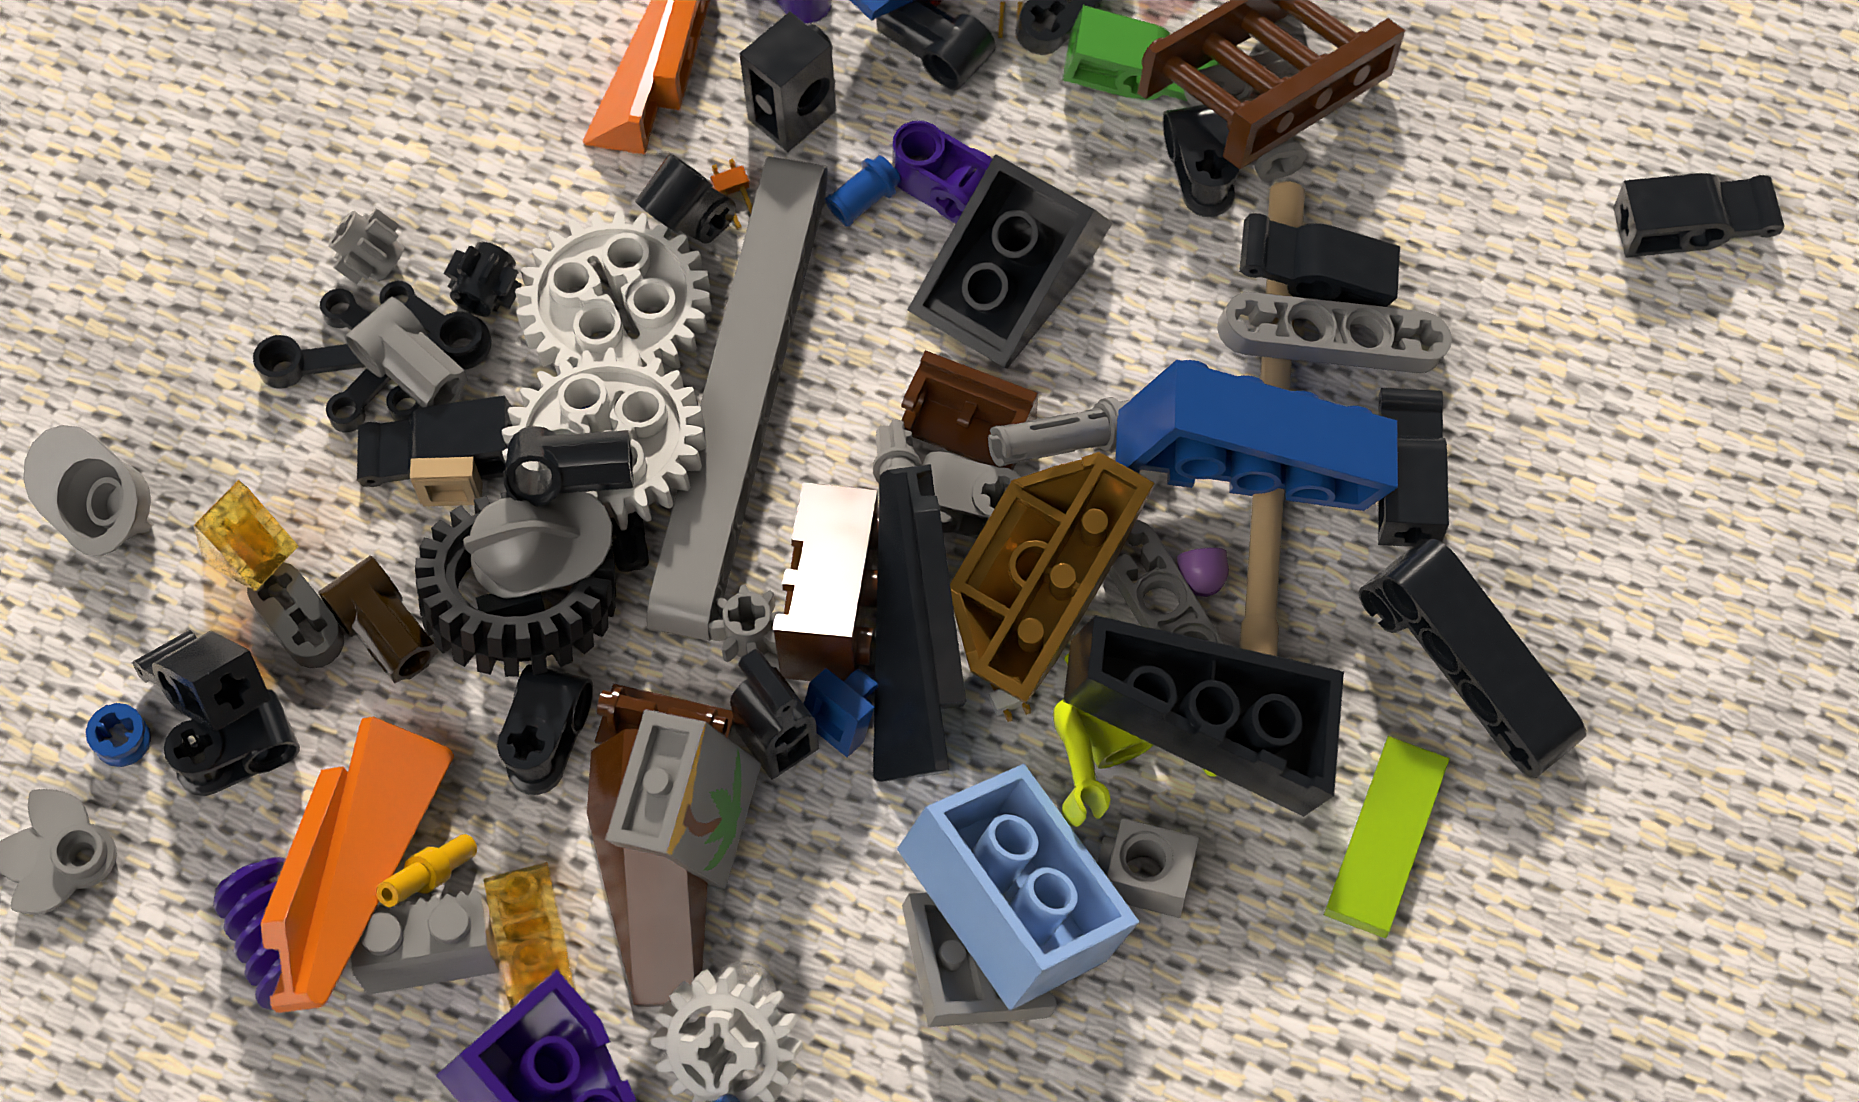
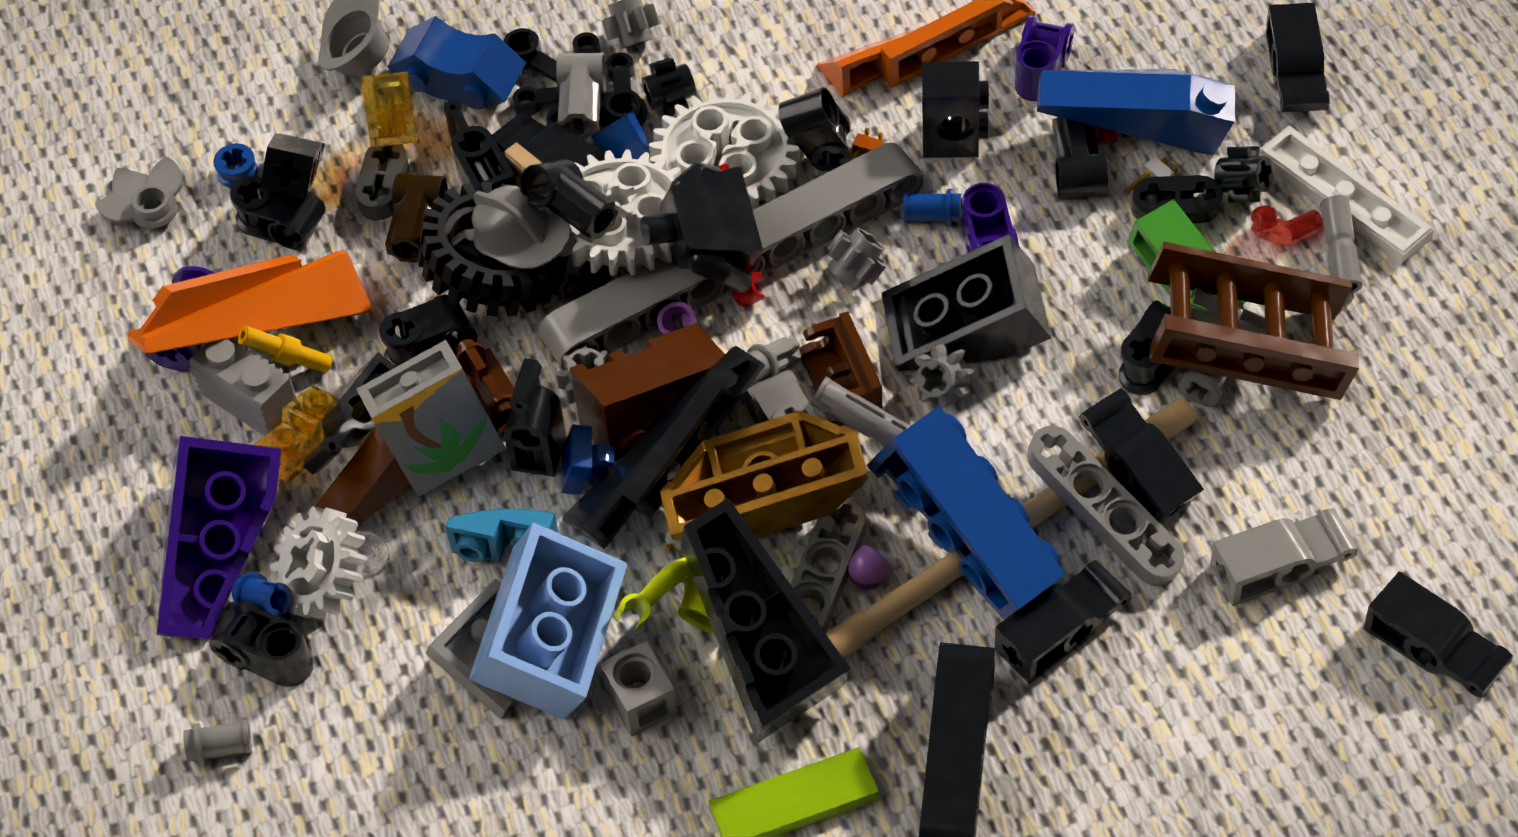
camera: 50 degrees right, 10 degrees down
(237, 434) = (457, 64): none -> blue brick
(398, 523) = (475, 151): none -> black piece
(497, 368) = (622, 136): none -> blue tile
(576, 864) = (347, 418): none -> black piece
(722, 376) = (710, 228): none -> black torso
(775, 490) = (665, 316): none -> medium lavender hinge
(841, 862) = (488, 532): none -> dark azure slope
(858, 295) = (856, 257): none -> light grey gear
(1053, 327) = (955, 375): none -> light grey gear
(1507, 251) = (1279, 554): none -> light grey piece

